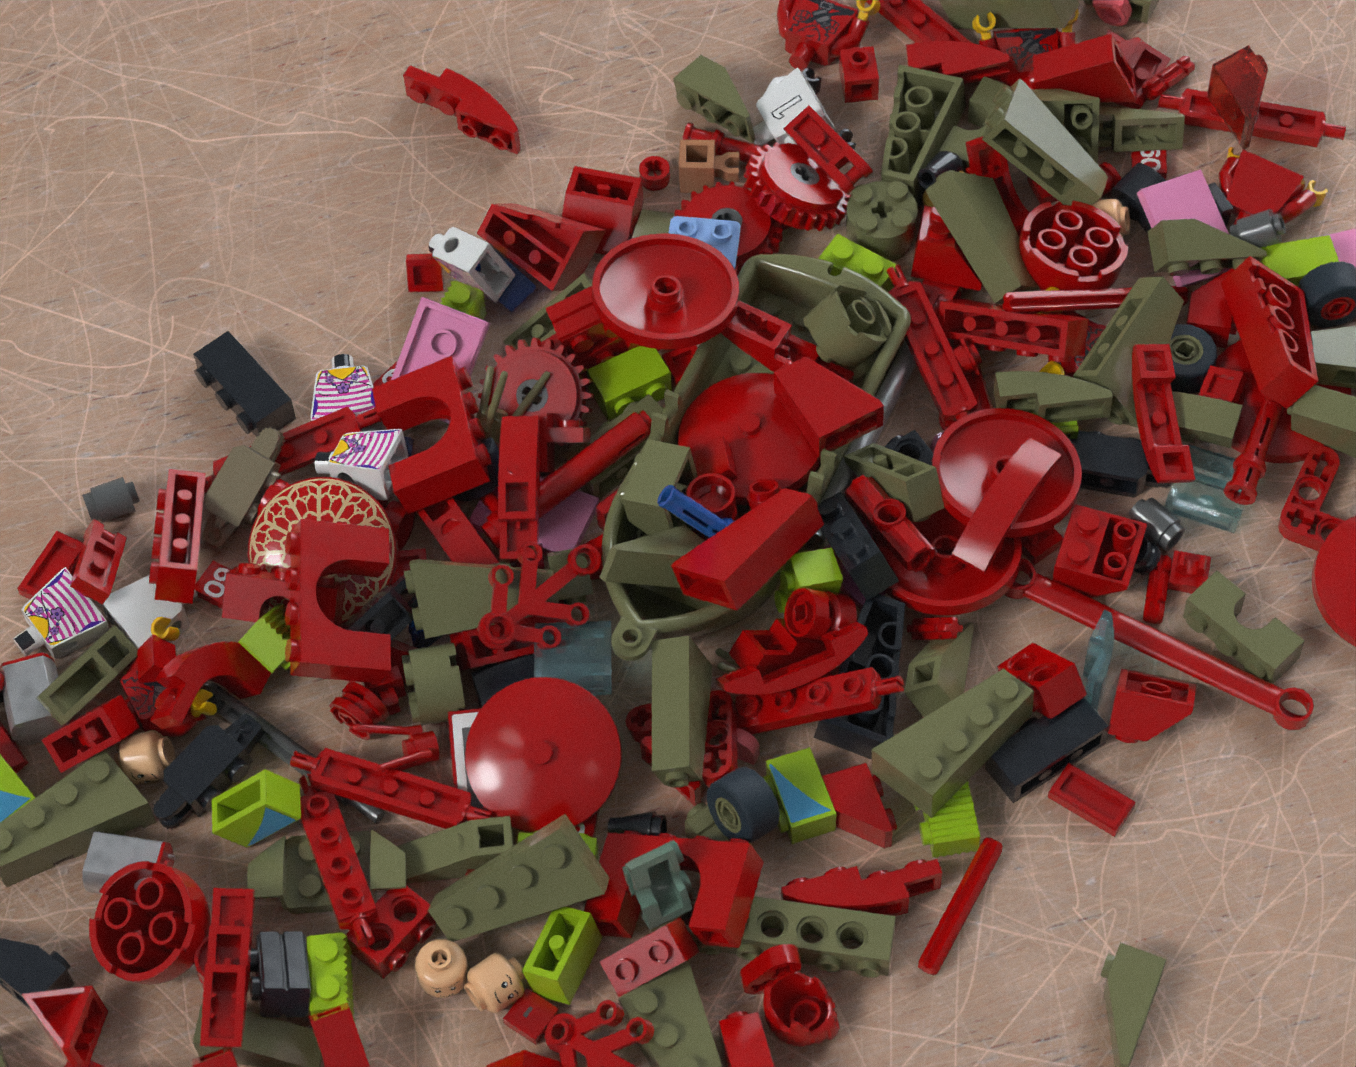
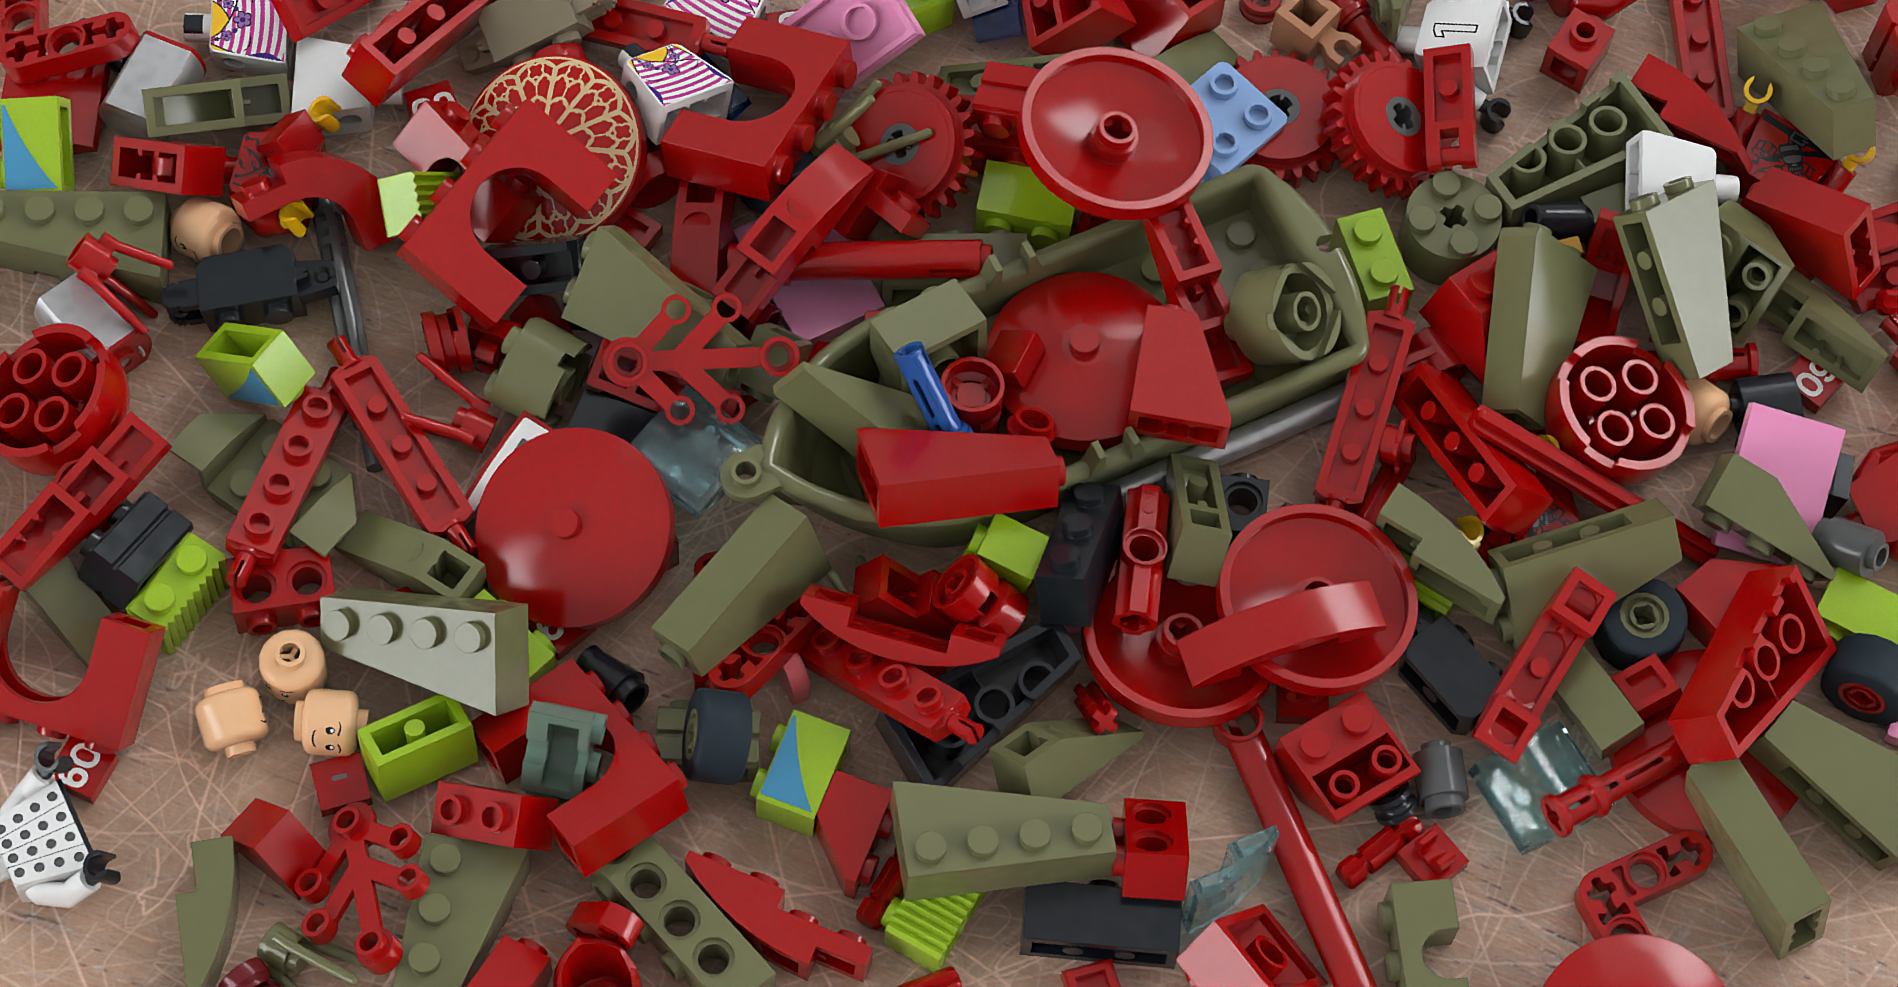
camera: 30 degrees right, 5 degrees up
(106, 820) = (94, 264): none -> red plant
(431, 1028) = (232, 719): none -> light nougat head
(907, 824) = (882, 892): none -> red axle
(972, 98) = (1659, 158): none -> white torso

